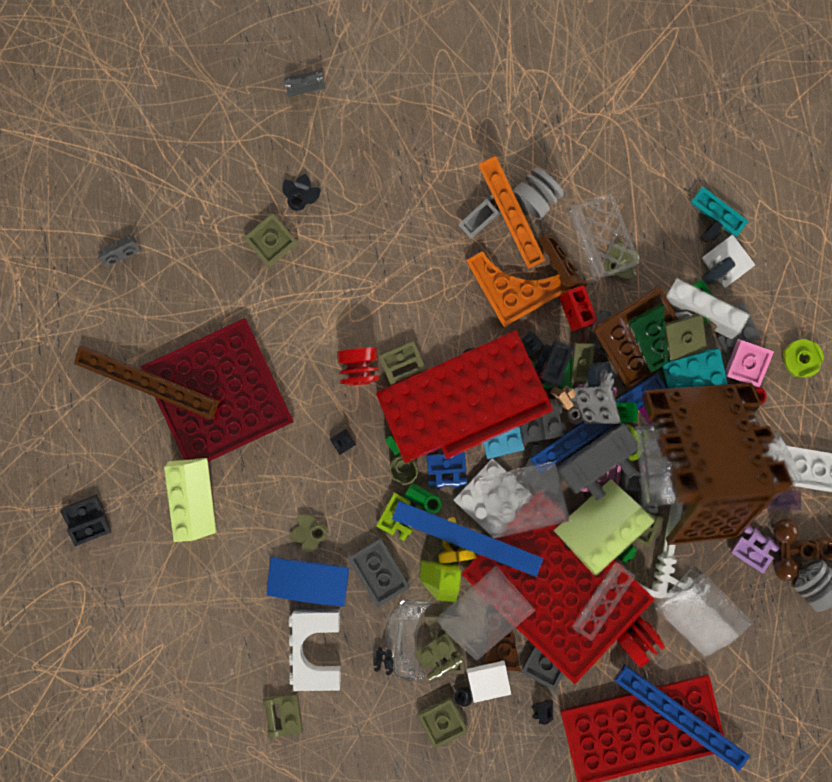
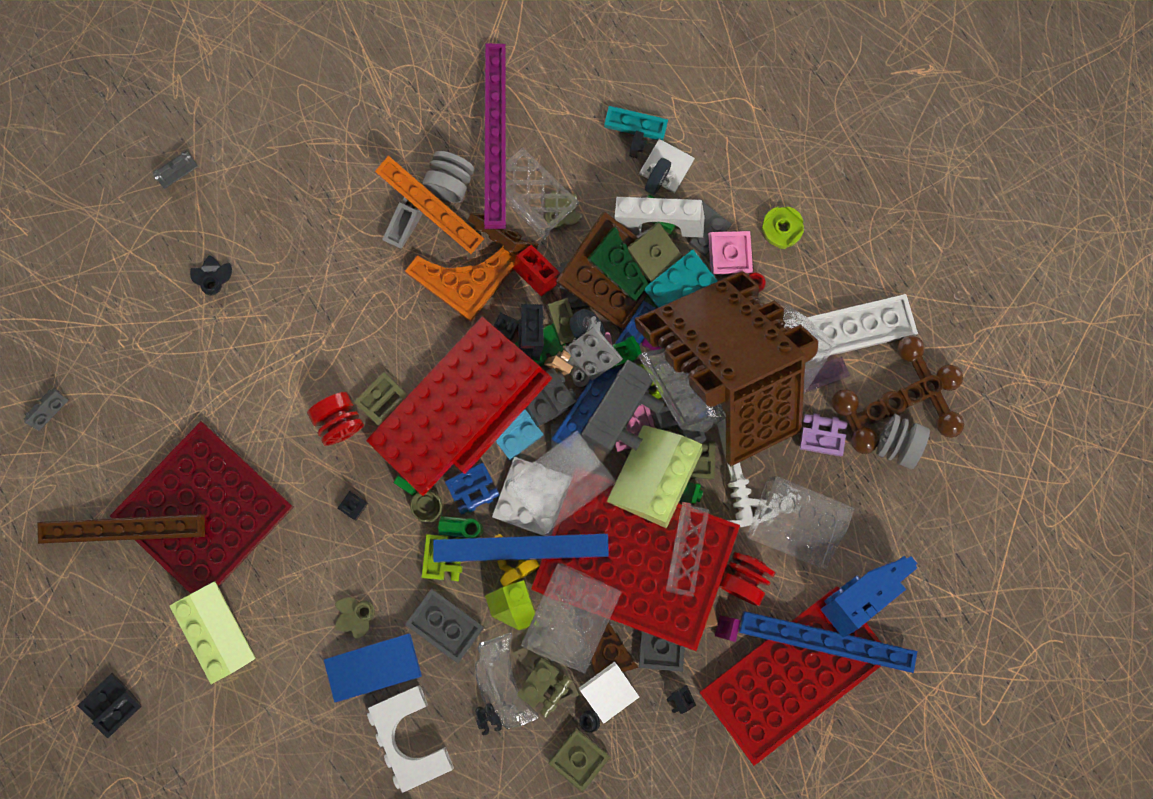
camera: 20 degrees left, 10 degrees down
(270, 240) = (198, 333): olive plate -> none
(594, 173) = (495, 136): none -> magenta plate
(605, 672) = (727, 628): none -> magenta plate
(732, 699) = (866, 596): none -> blue piece

